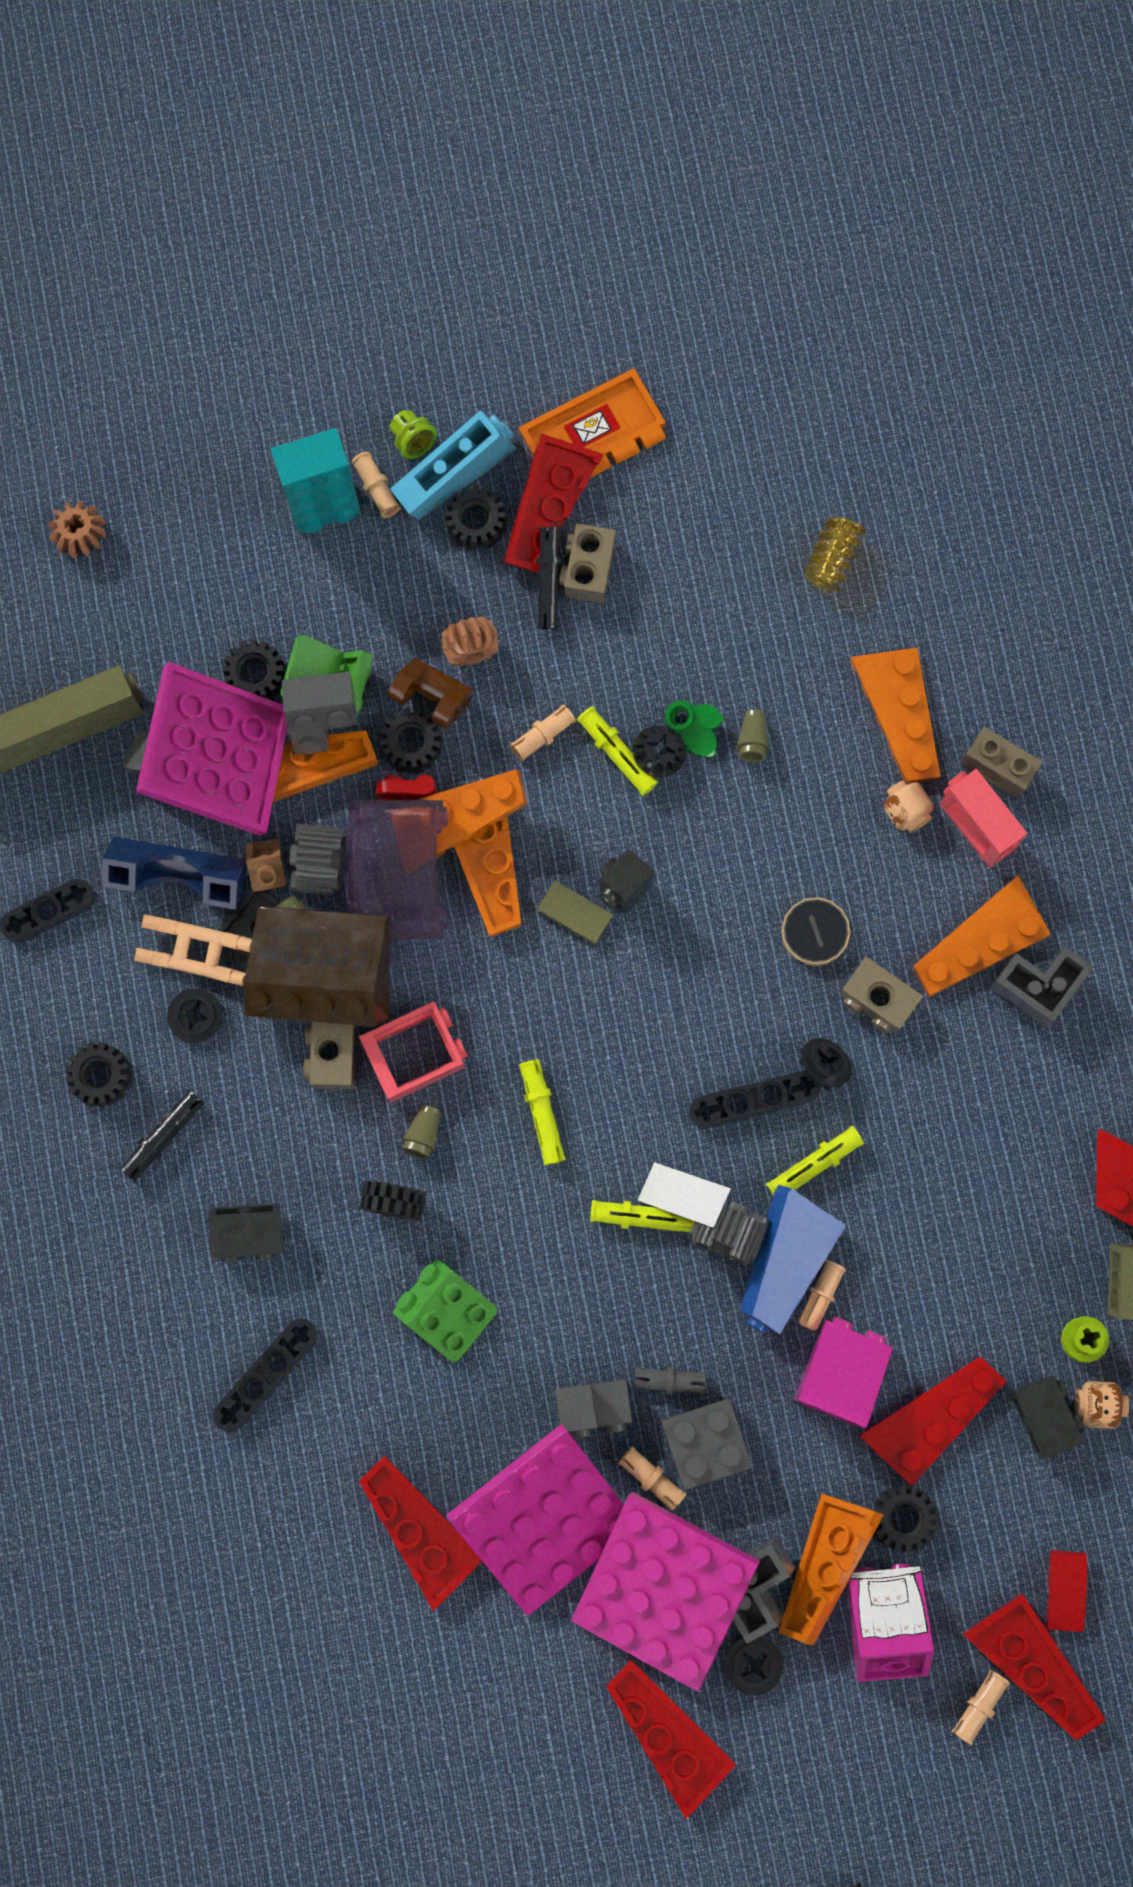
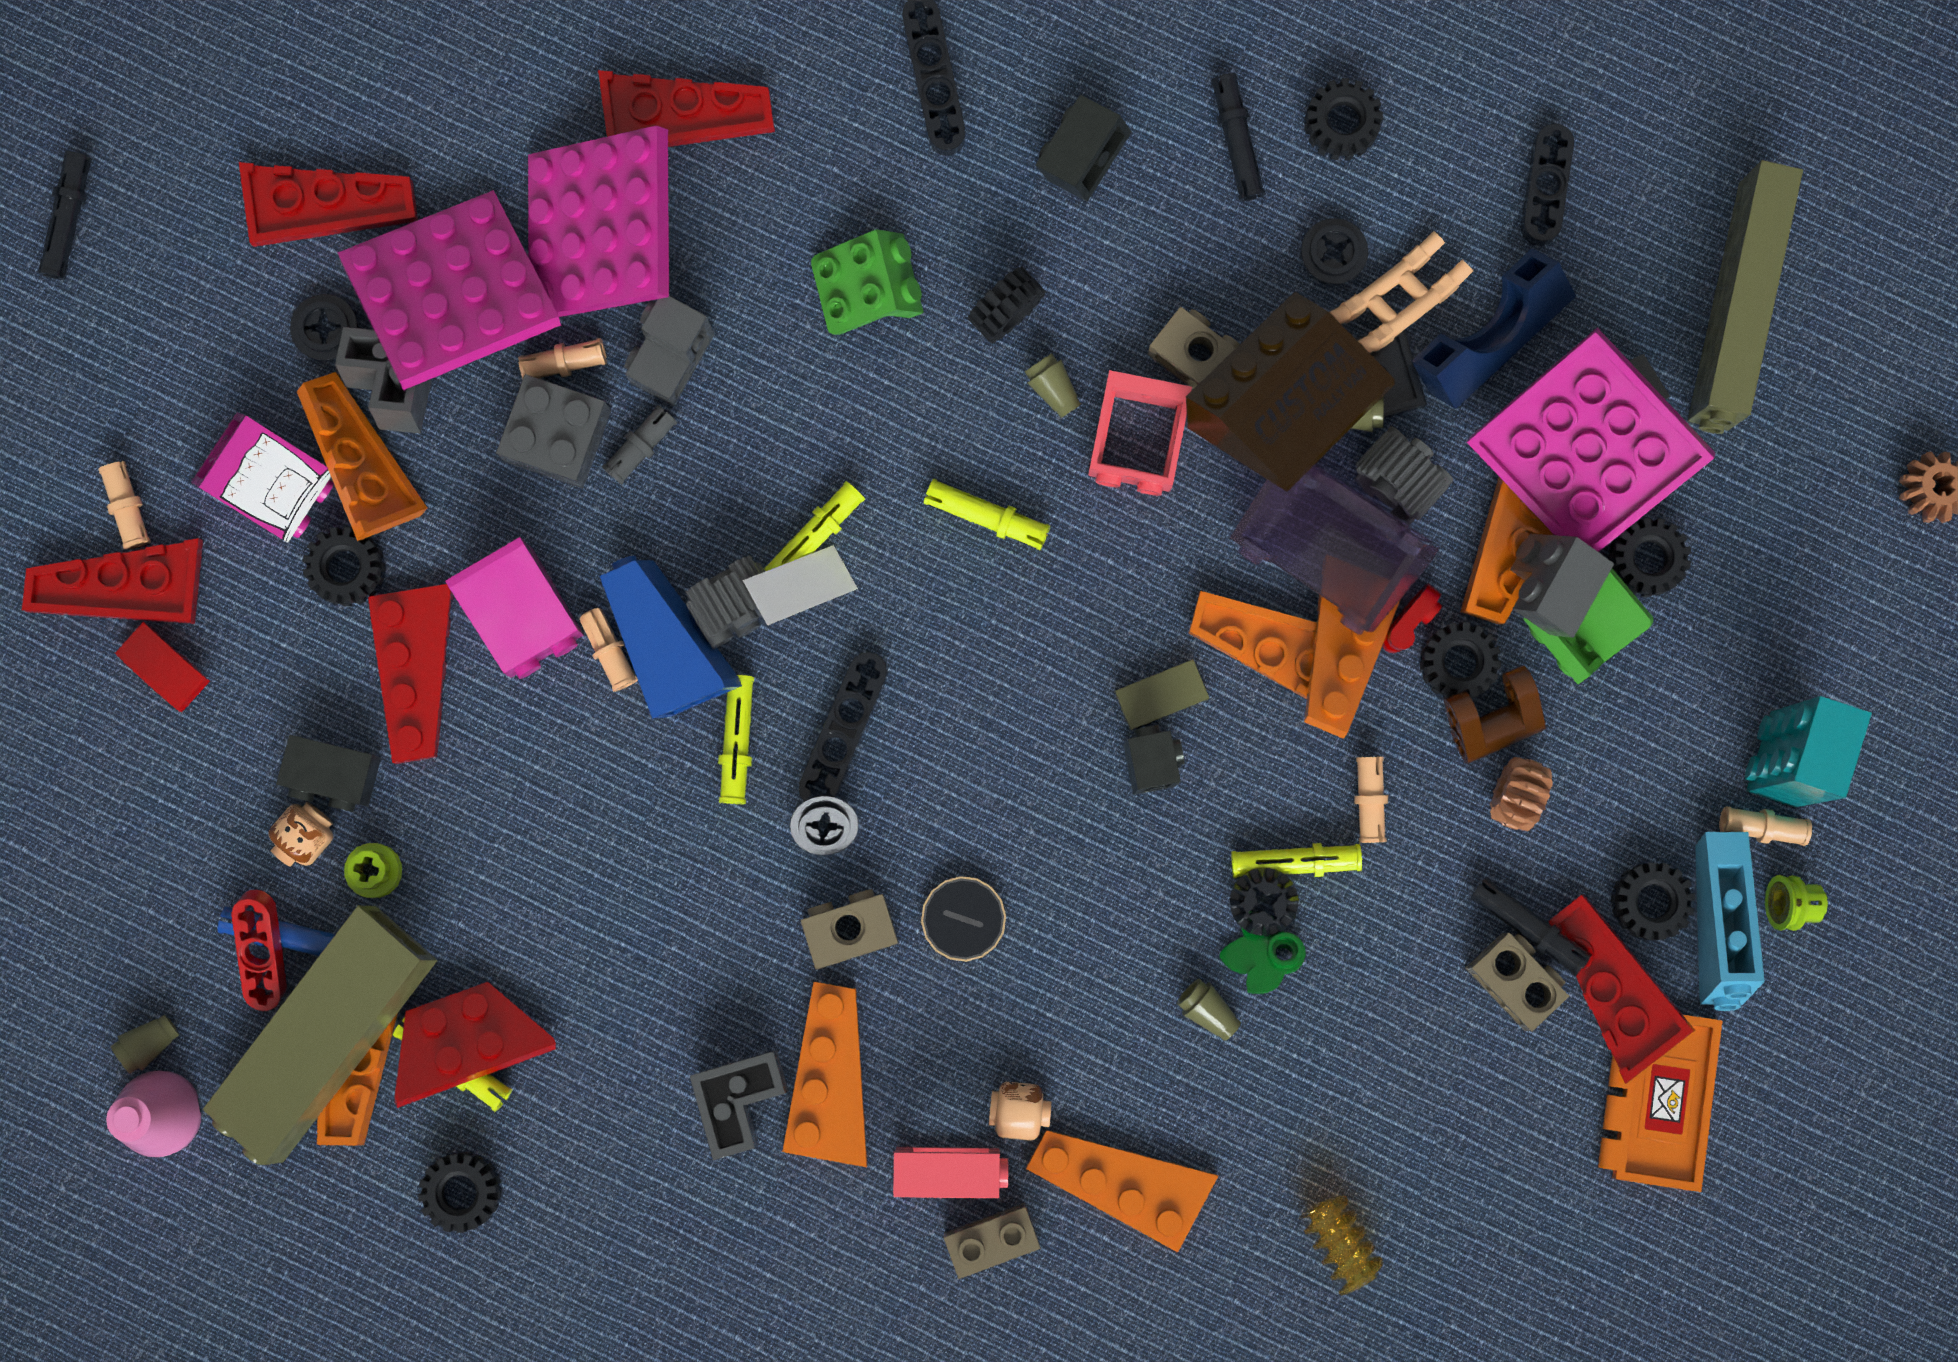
camera: 125 degrees right, 5 degrees up
(265, 865) = (1438, 424): medium nougat bracket -> none

